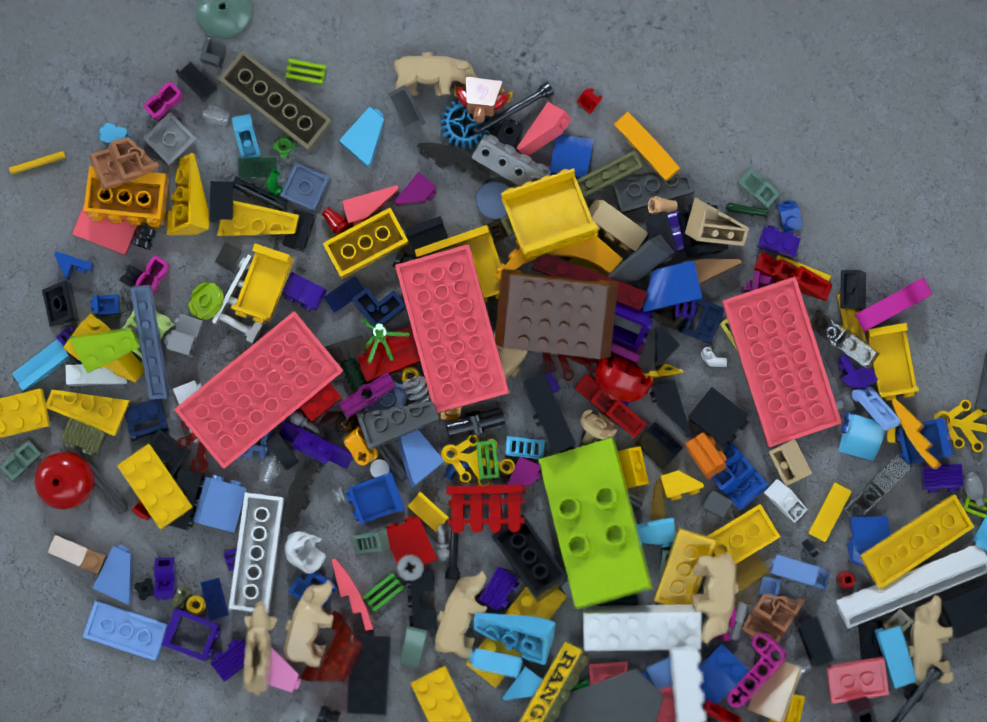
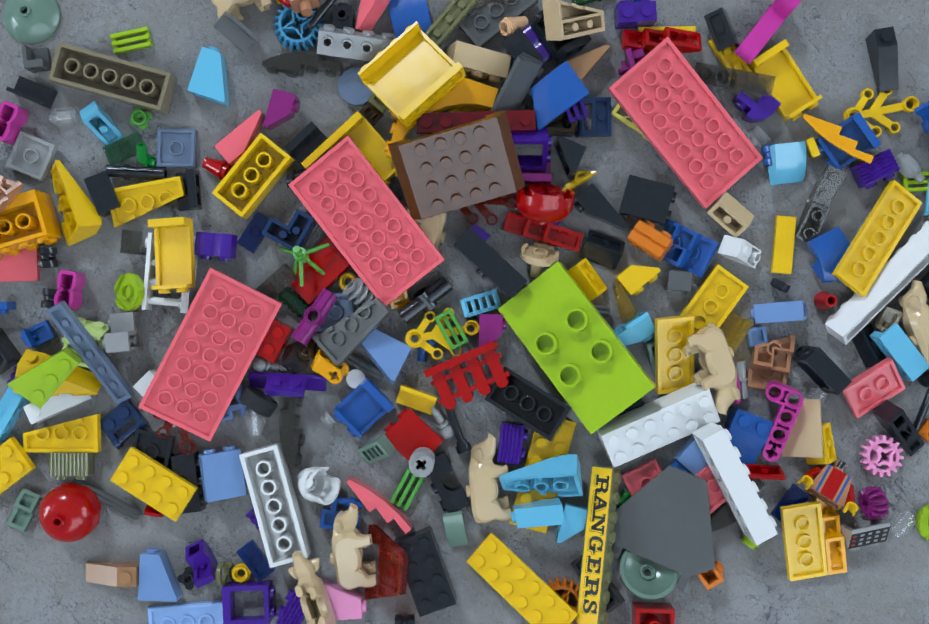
camera: 20 degrees left, 5 degrees up
(711, 360) = (617, 150): white arm -> none
(876, 407) = (790, 129): light blue plate -> none

